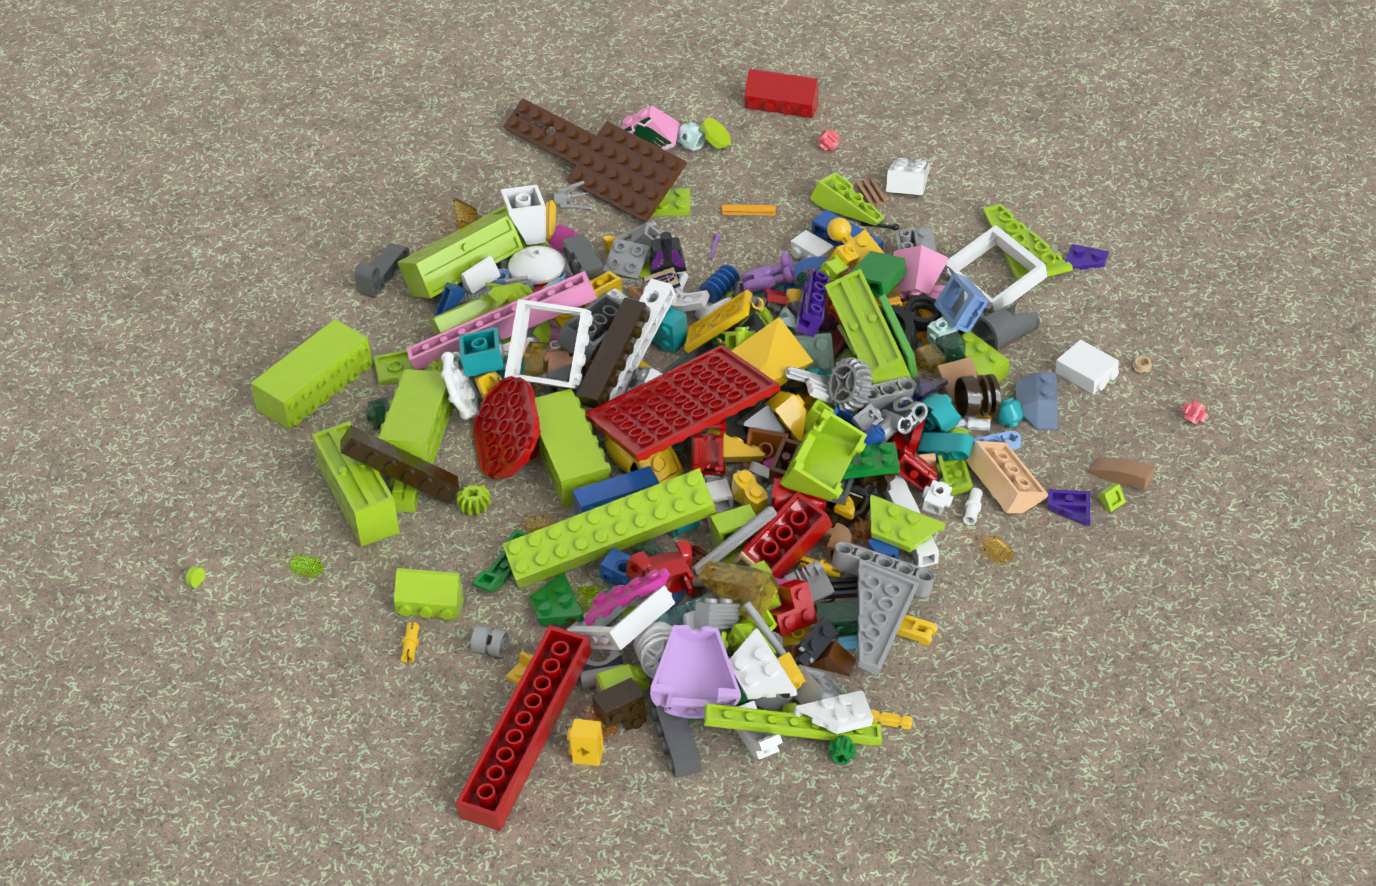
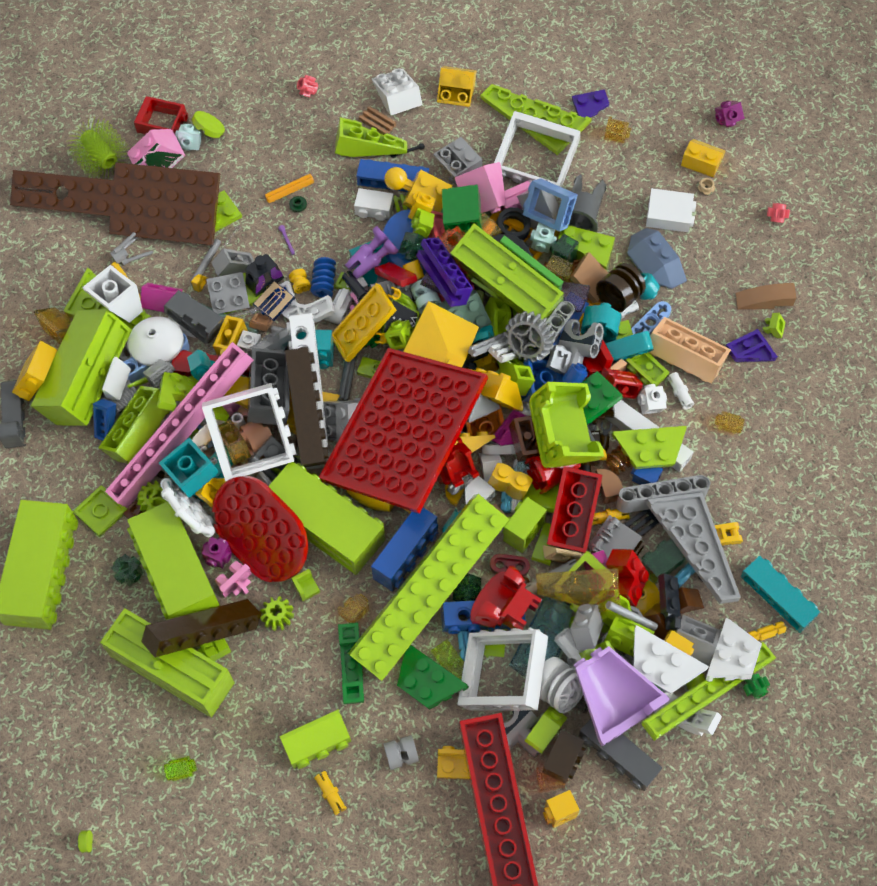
camera: 35 degrees left, 20 degrees up
(420, 238) = (34, 371): none -> yellow brick
(460, 461) = (237, 582): none -> bright pink hips
(461, 434) = (219, 557): none -> magenta brick
(513, 490) = (305, 585): none -> lime panel
(603, 108) = (98, 149): none -> lime piece
(624, 595) = (498, 651): dark pink wing -> none
(681, 102) = (153, 104): none -> red window
(697, 276) = (300, 281): none -> yellow wheel
(736, 539) = (540, 539): light grey axle -> none
(745, 224) = (298, 207): none -> dark green plate
(781, 93) = (235, 57): red slope -> none
(927, 695) = (780, 593): none -> teal brick
(966, 192) = (456, 86): none -> yellow slope
(1090, 286) = (617, 130): none -> clear yellow brick
(1157, 340) = (702, 157): none -> yellow slope
(1221, 313) = (729, 113): none -> magenta brick

